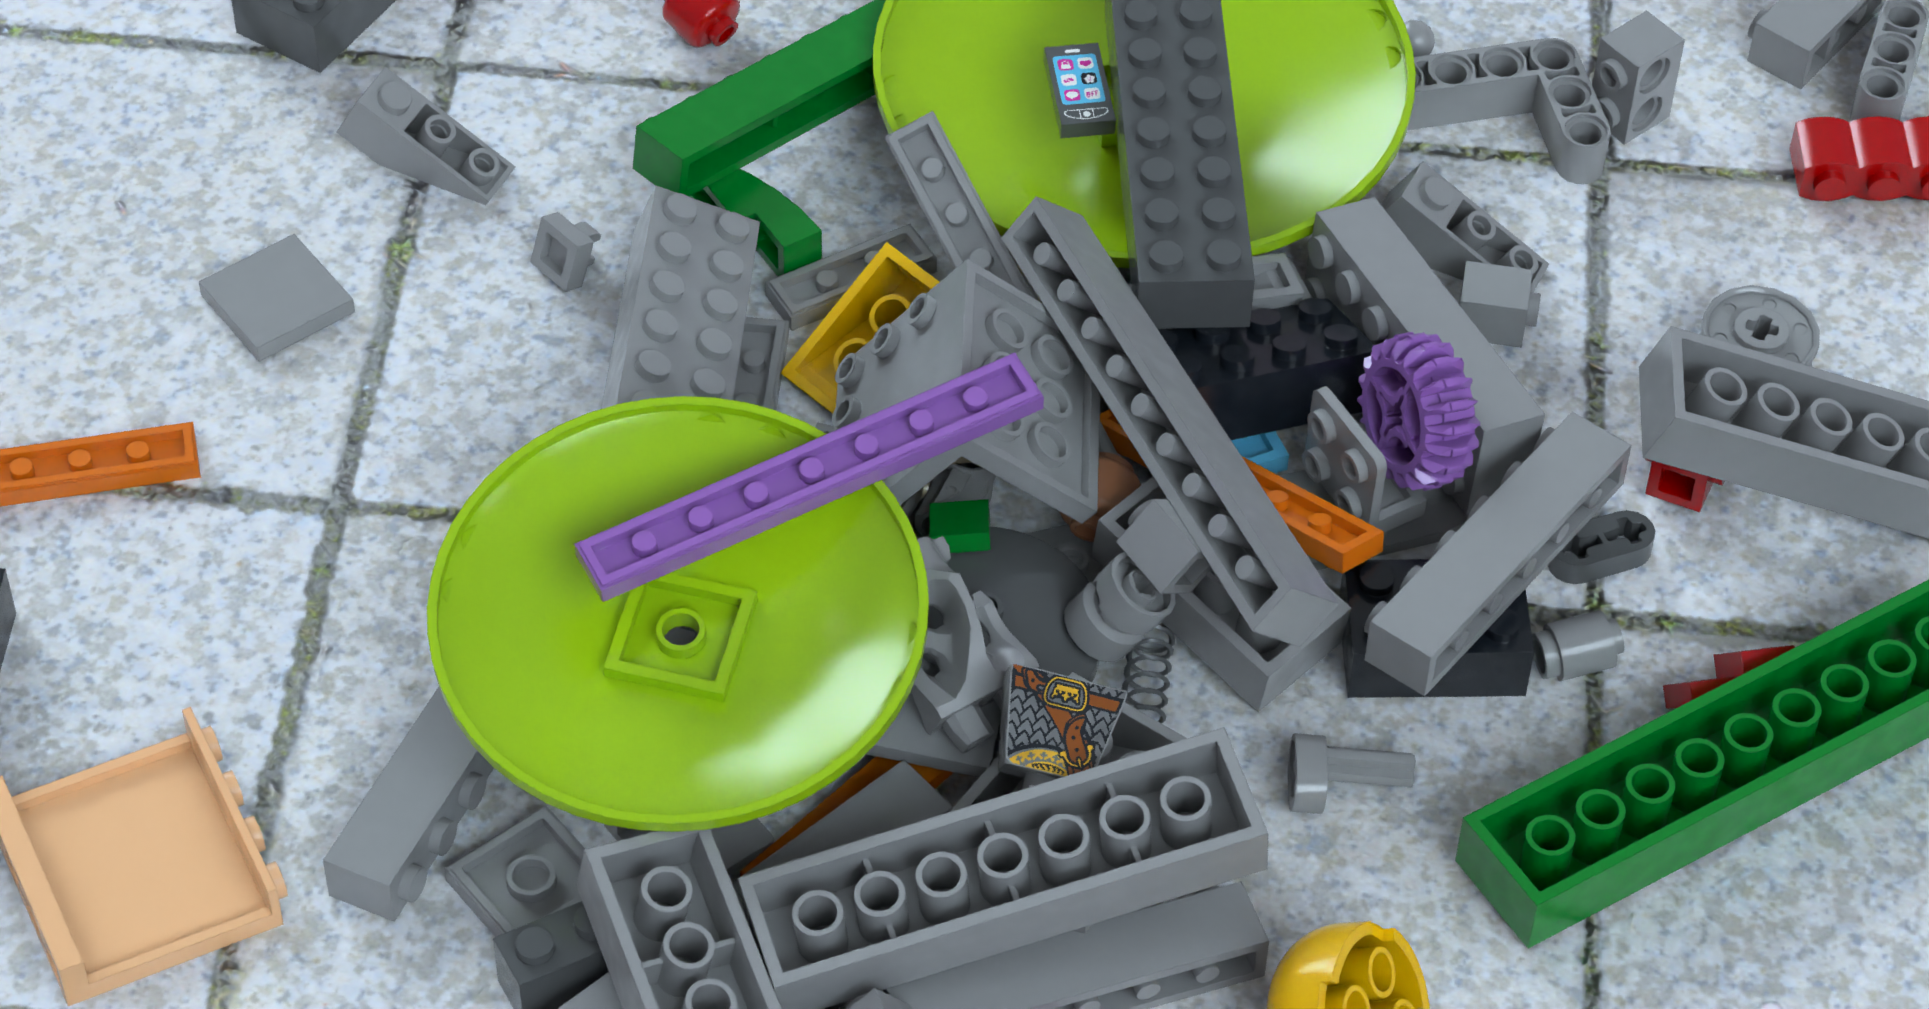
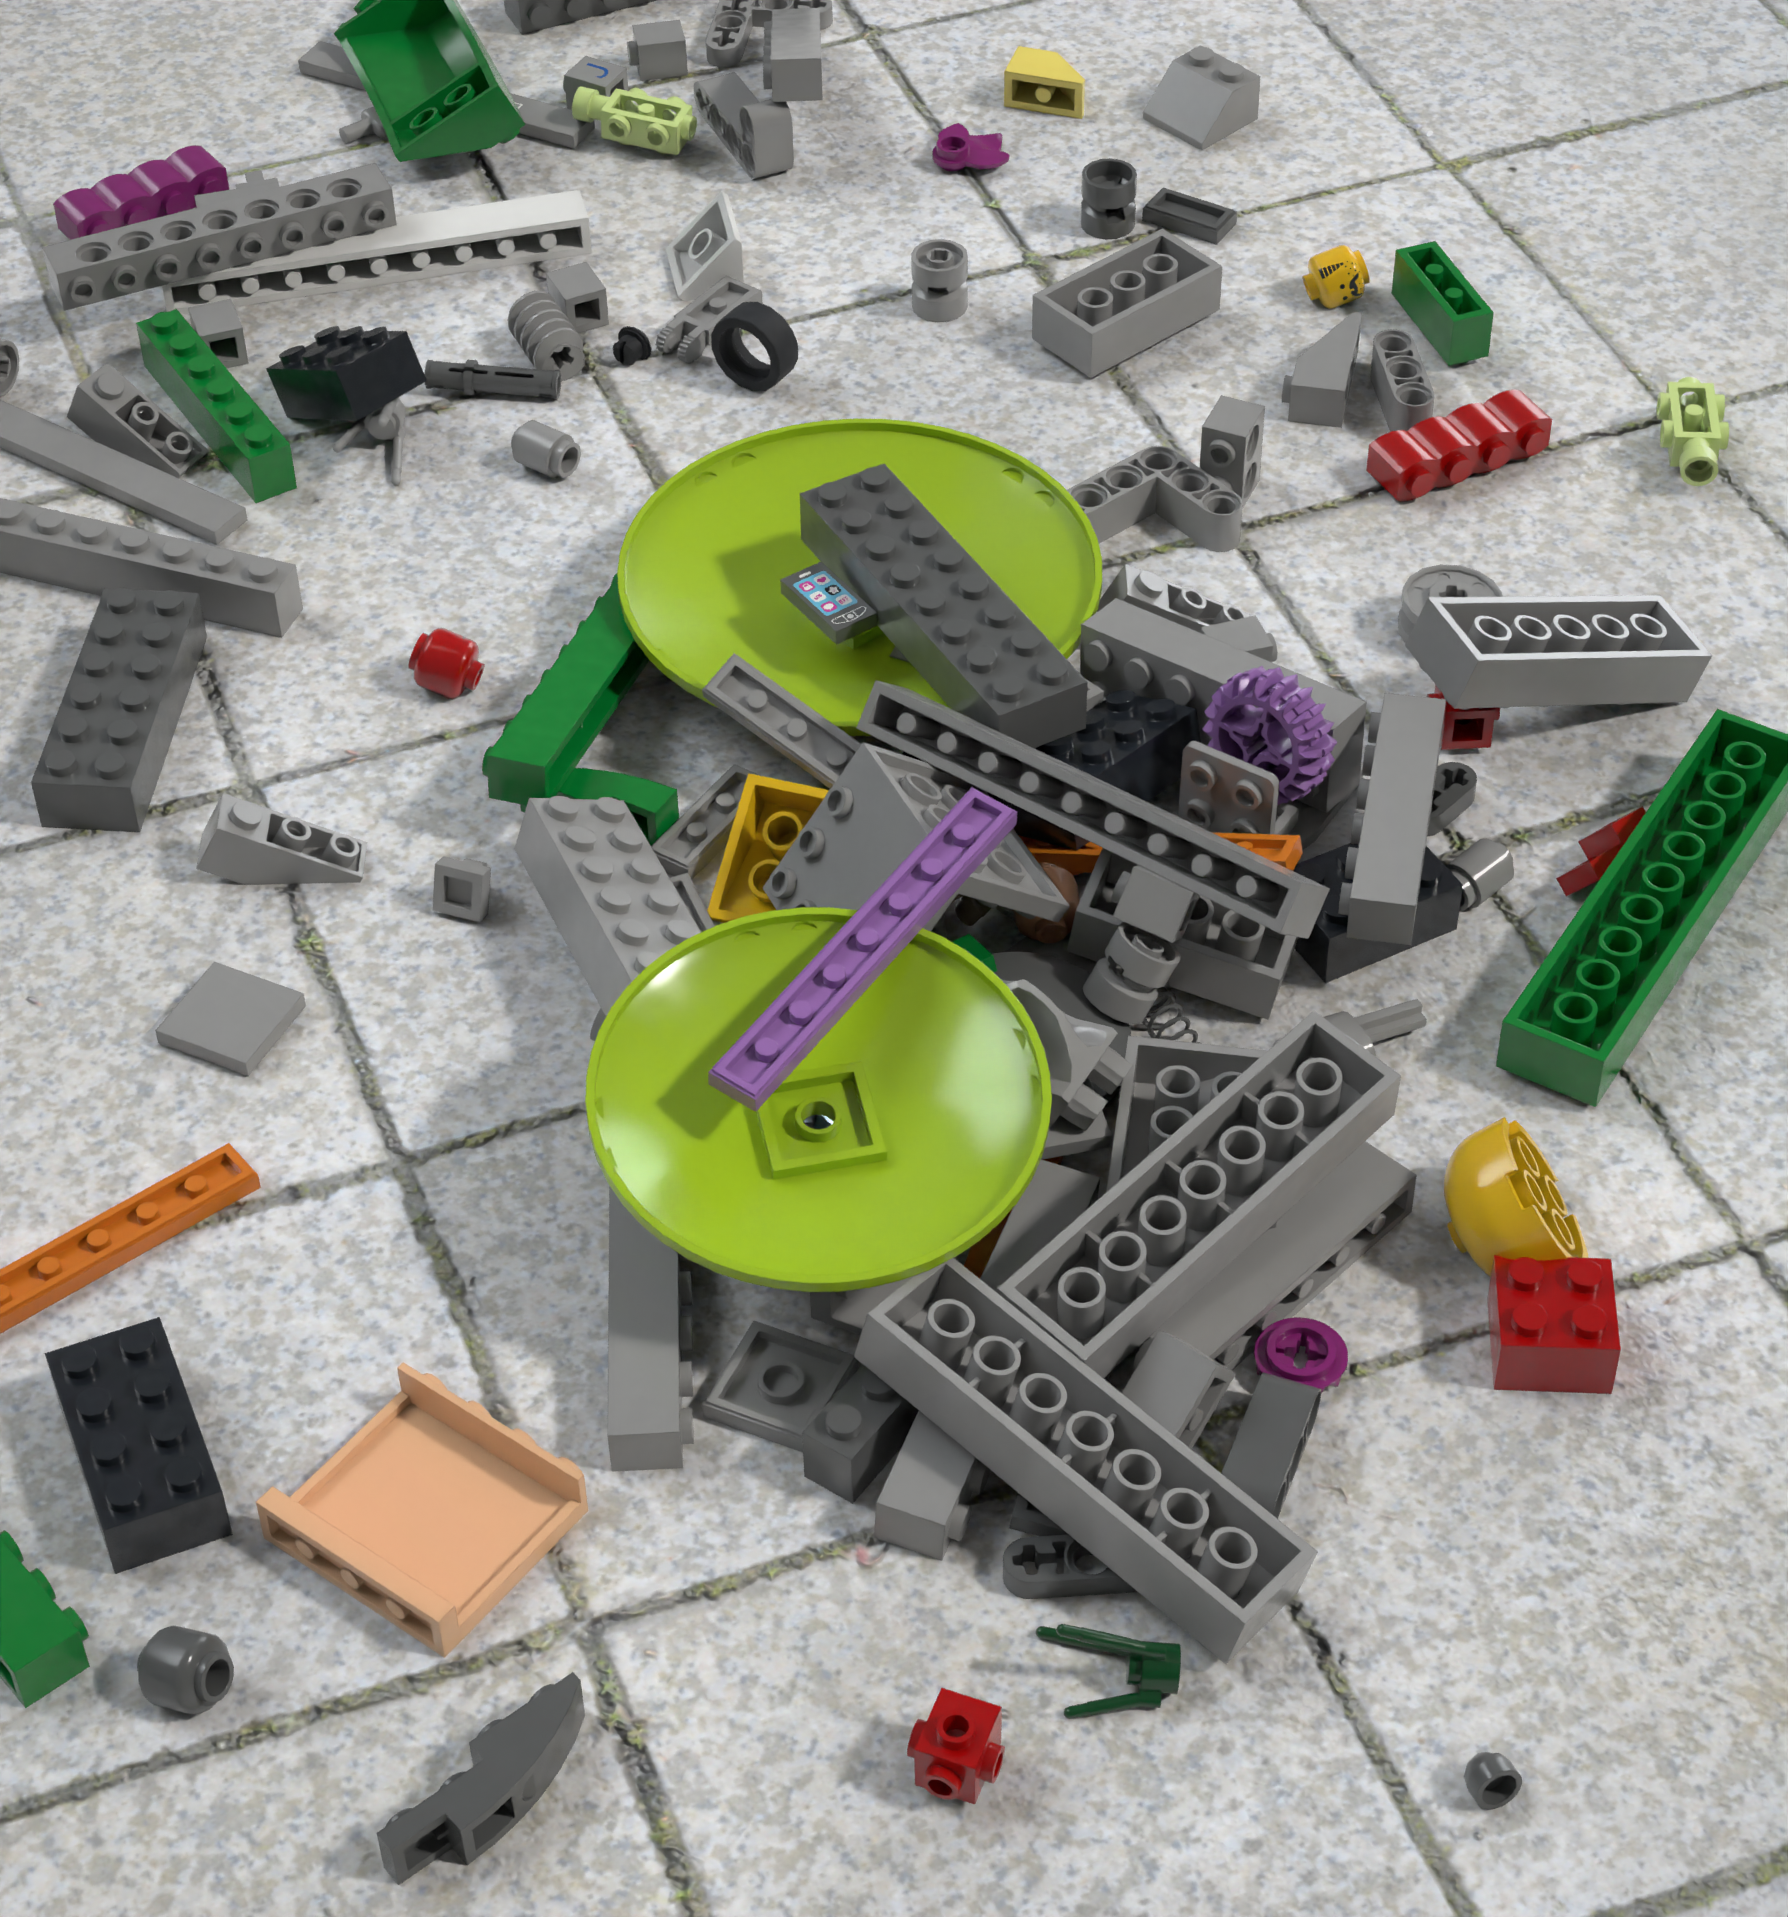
camera: 25 degrees left, 5 degrees down
(1053, 723) = (1162, 1072): torso -> none

